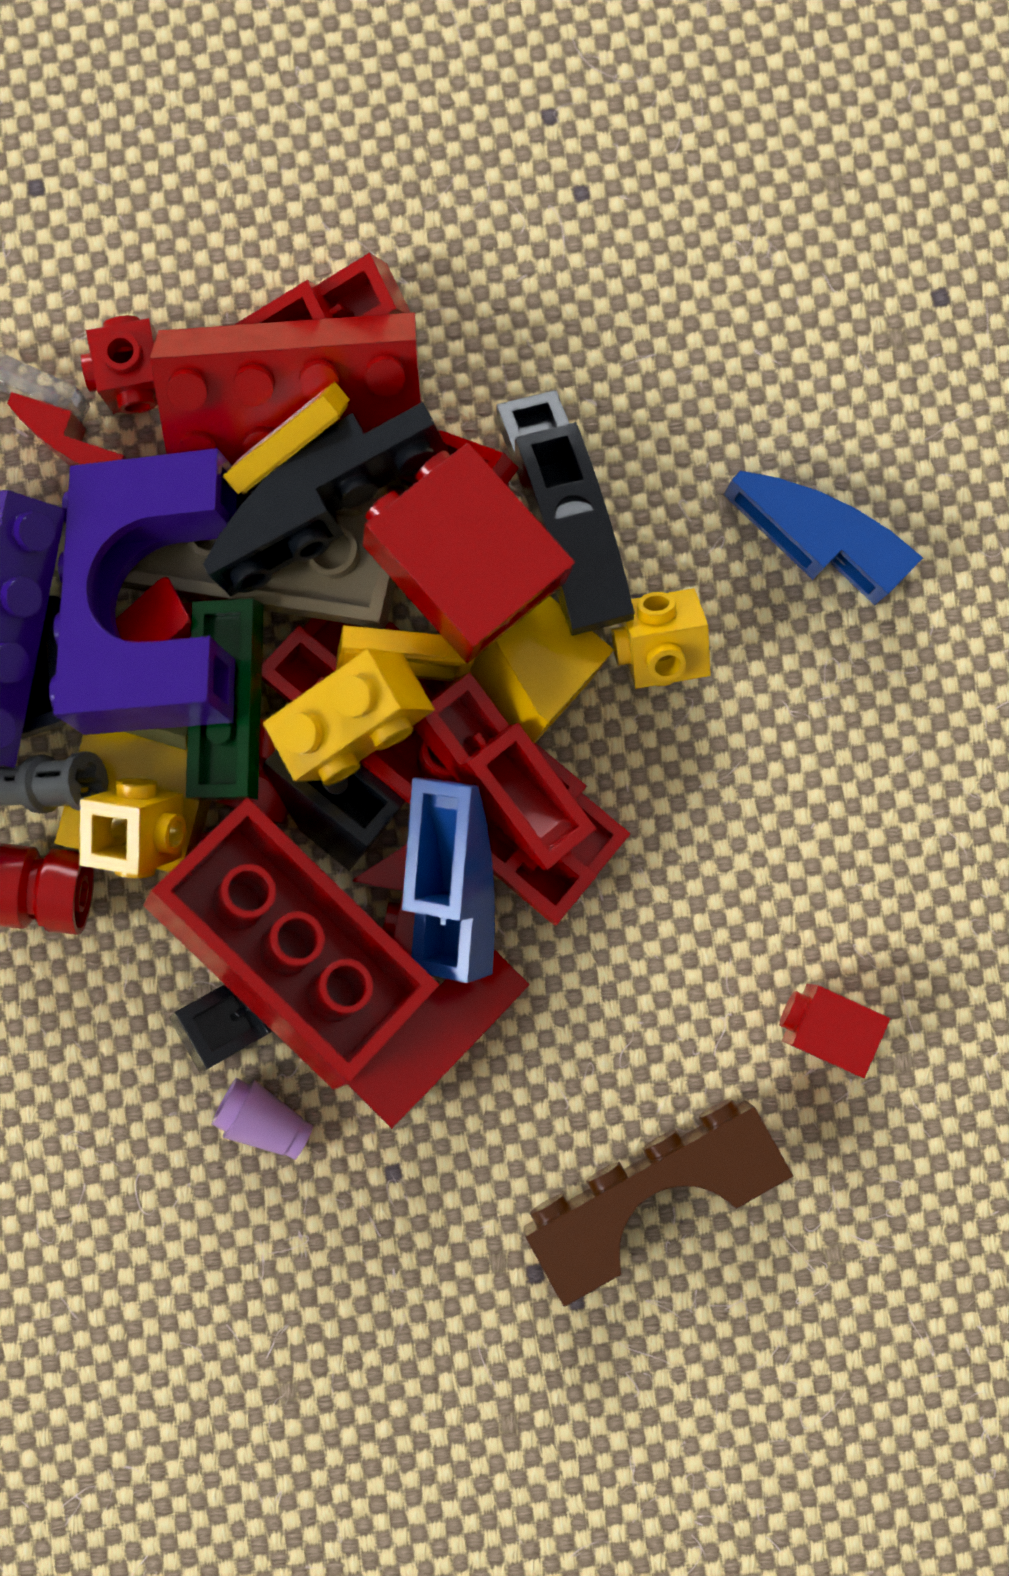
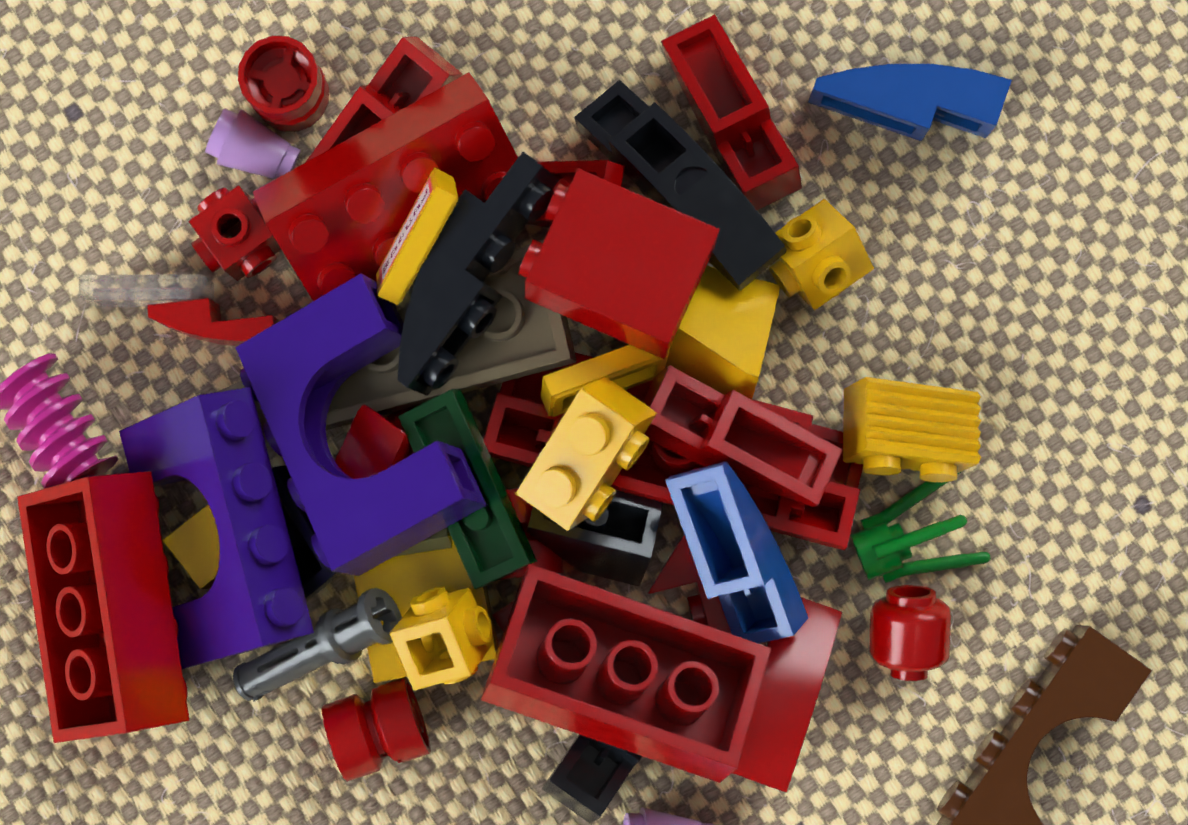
camera: 10 degrees left, 0 degrees up
(180, 289) = (250, 146): none -> lavender cone
(239, 246) = (283, 83): none -> red wheel
(583, 1033) = (910, 632): none -> red head
(596, 942) = (885, 547): none -> green plant
(646, 470) = (732, 113): none -> red slope
(674, 841) = (910, 427): none -> yellow brick
(833, 1028) = (1125, 526): red brick -> none

